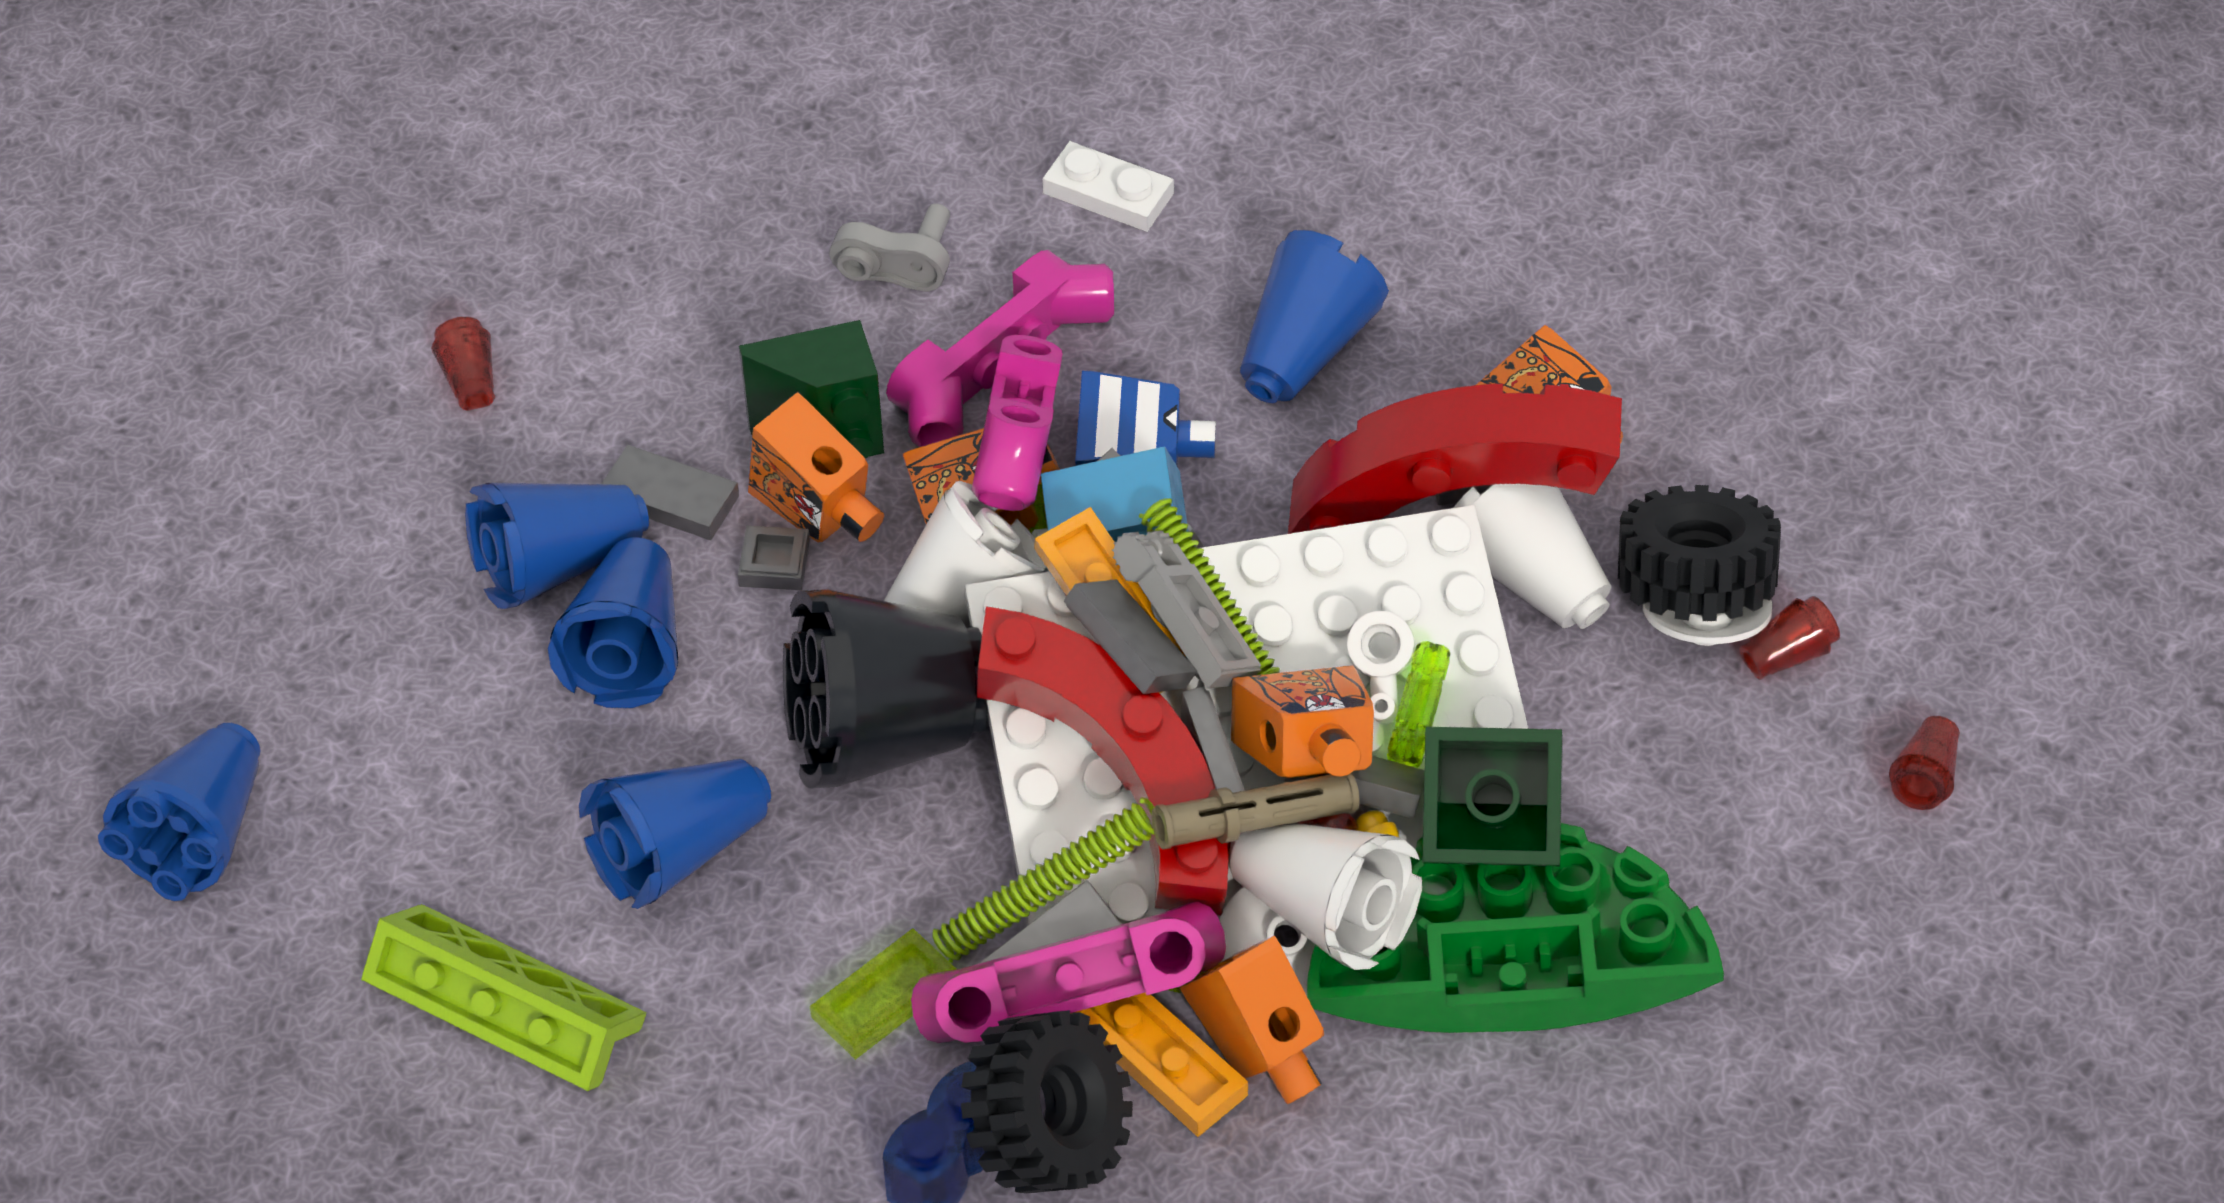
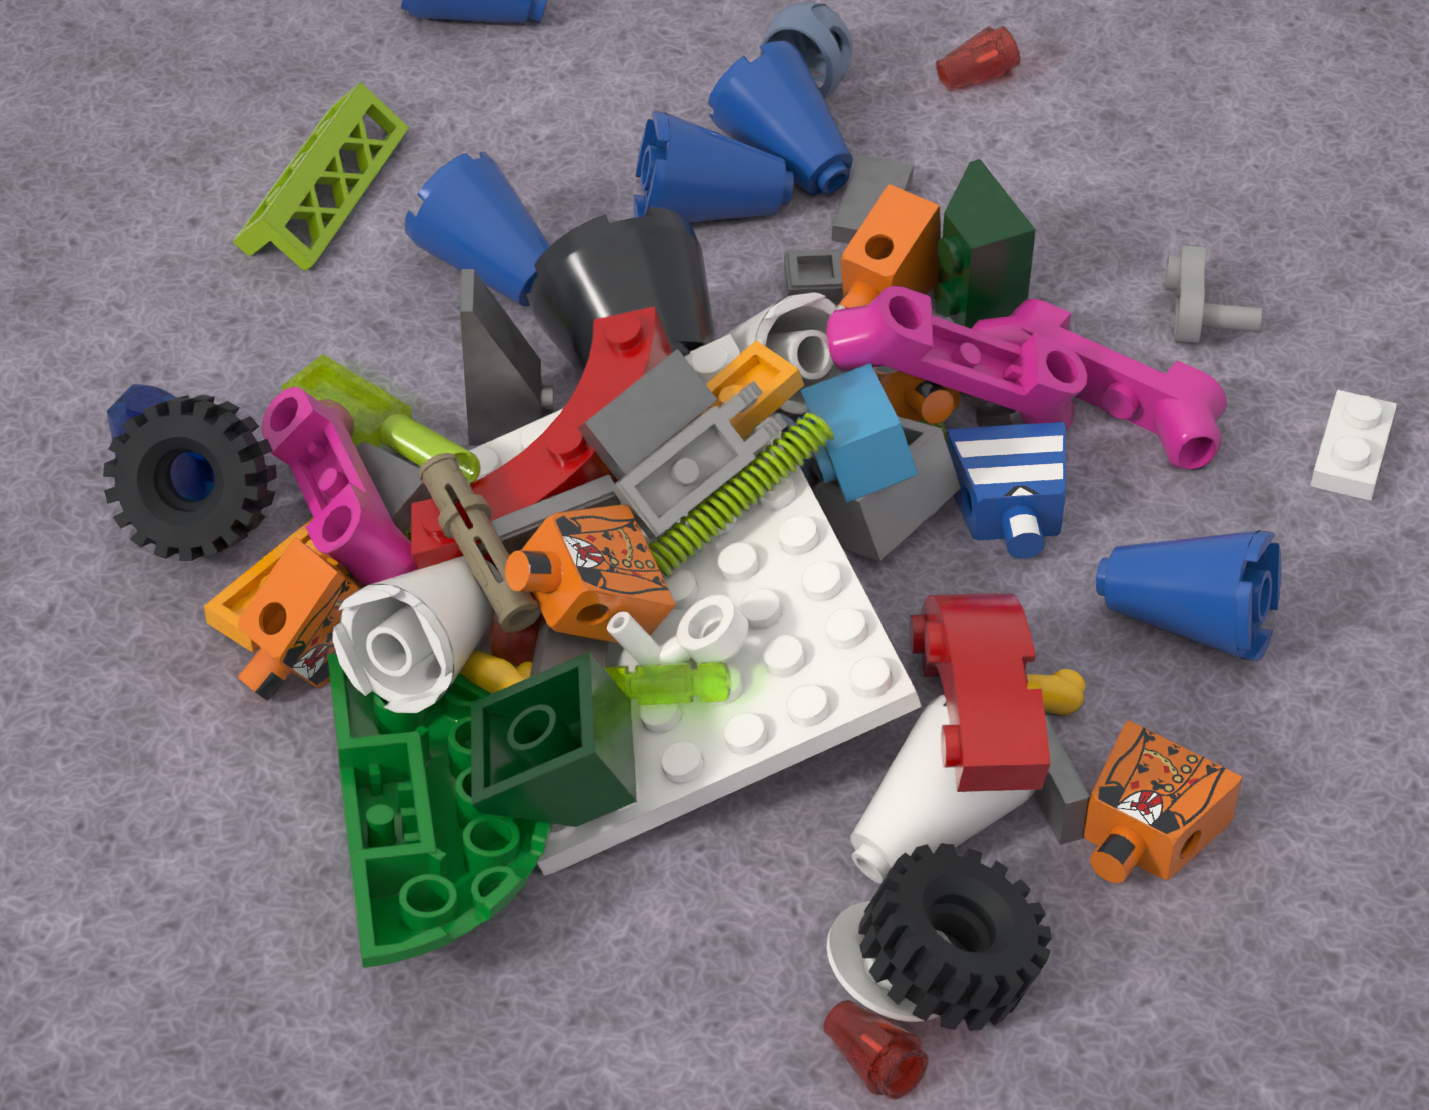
camera: 80 degrees right, 5 degrees down
(416, 484) = (818, 36): none -> sand blue helmet
(930, 823) = (499, 367): none -> flat silver slope

